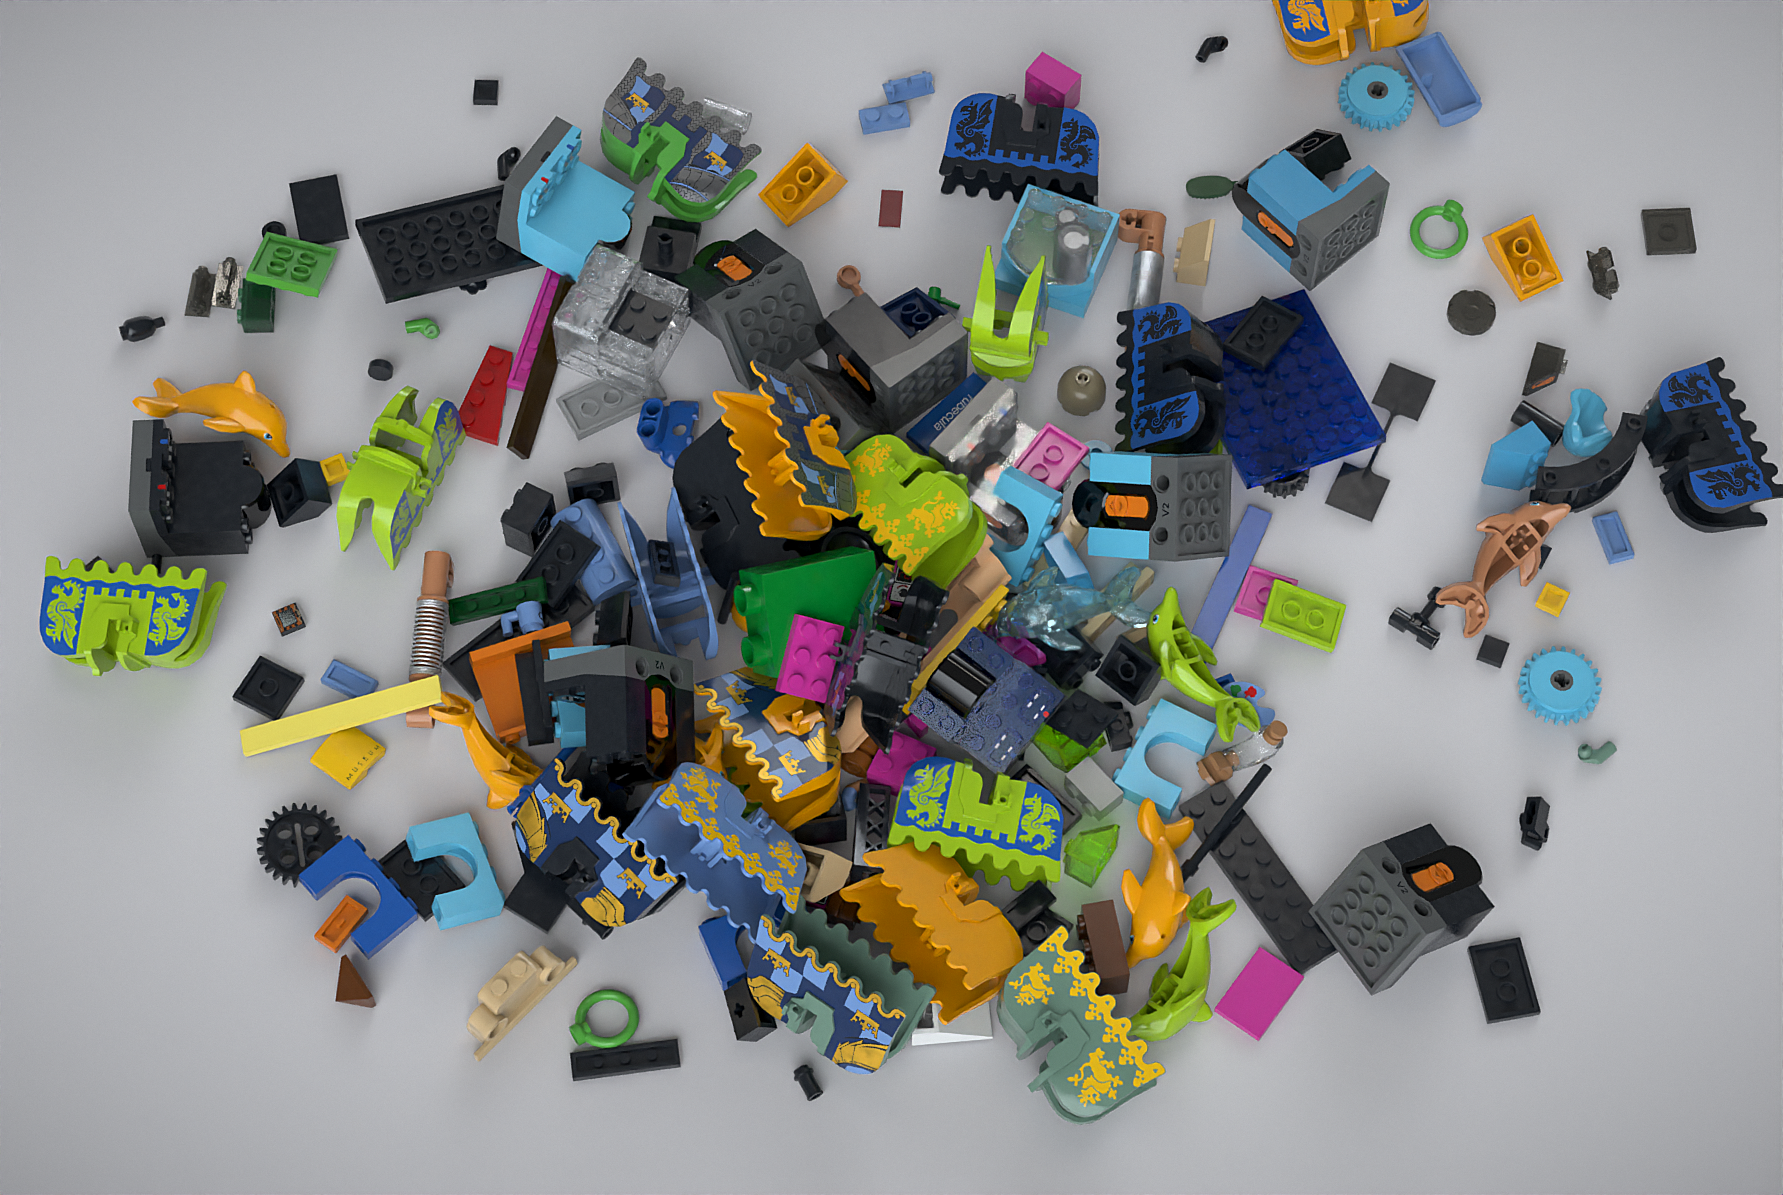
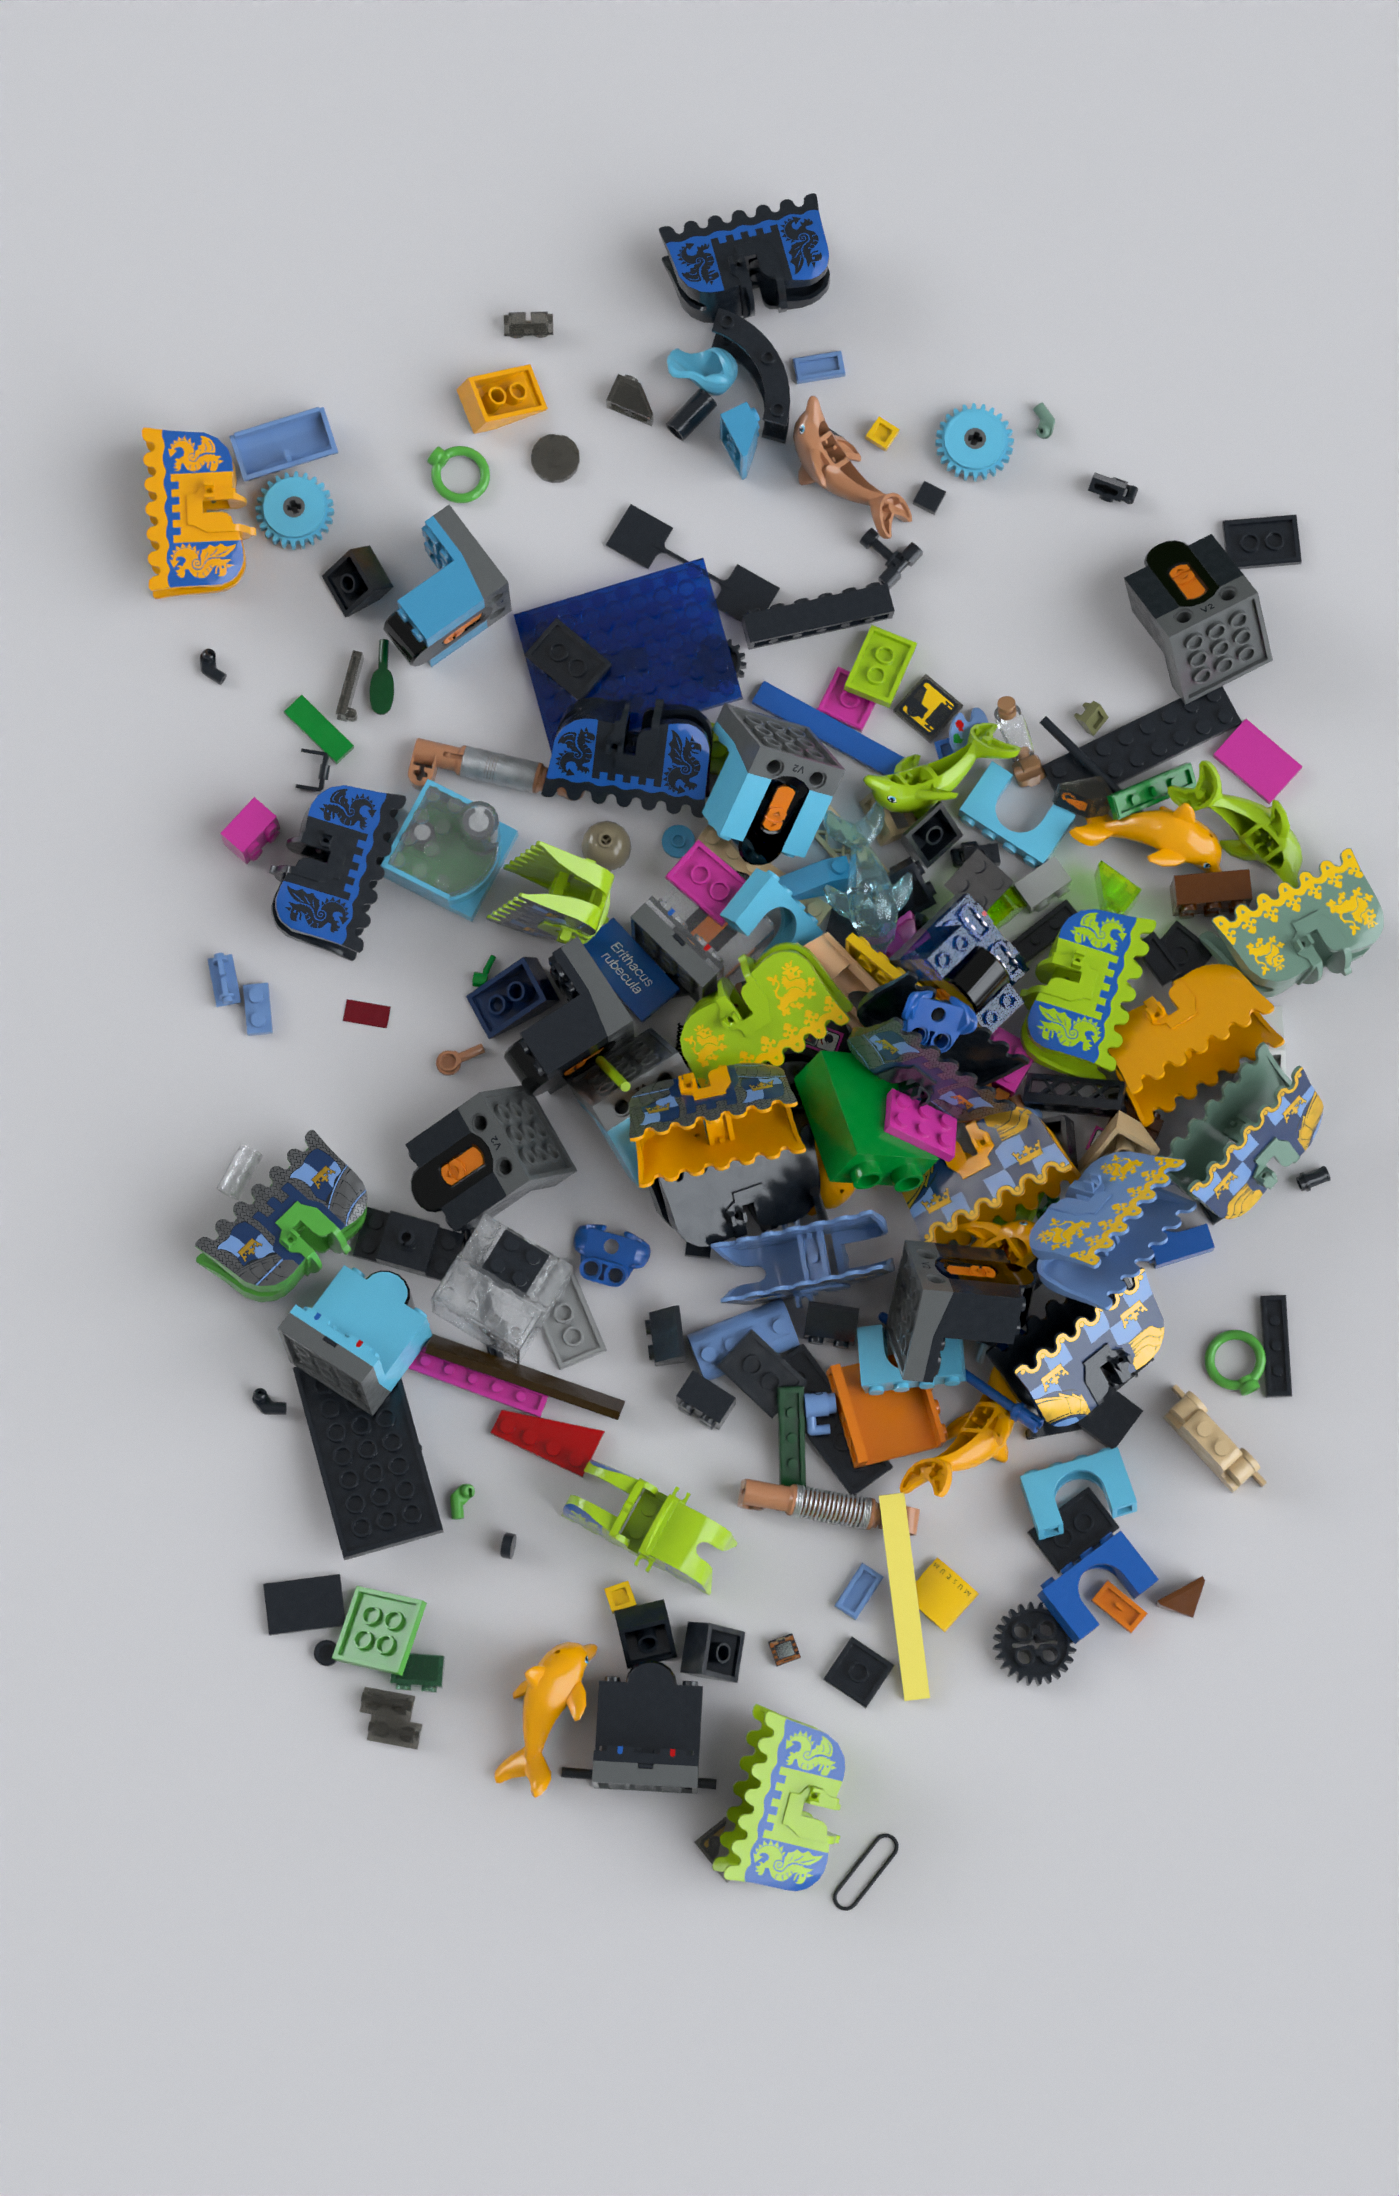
camera: 85 degrees left, 15 degrees up
(76, 704) = (873, 1879): none -> black piece
(140, 328) = (430, 1795): black plant -> none
(282, 553) = (712, 1651): none -> black slope
(486, 92) = (175, 1421): black tile -> none
(533, 697) = (907, 1402): black fence -> none
(663, 563) = (784, 1264): black tile -> none
(747, 1016) = (1248, 1228): black brick -> none
(802, 185) = (336, 1099): light orange slope -> none
(837, 385) = (616, 1077): none -> lime bar
(907, 651) = (957, 1019): none -> blue piece
(1122, 146) = (323, 772): none -> black piece
(1163, 140) = (319, 729): none -> green tile
(1189, 813) = (1084, 797): none -> clear smoke slope
(1195, 253) = (465, 713): tan slope -> none
(1203, 874) = (1150, 791): none -> green tile
(1208, 158) = (344, 709): none -> clear smoke hinge
(1268, 667) = (928, 708): none -> tile
(1280, 823) = (1092, 717): none -> olive tile
(1347, 553) = (818, 615): none -> black brick
(1668, 231) = (483, 254): clear smoke tile -> none

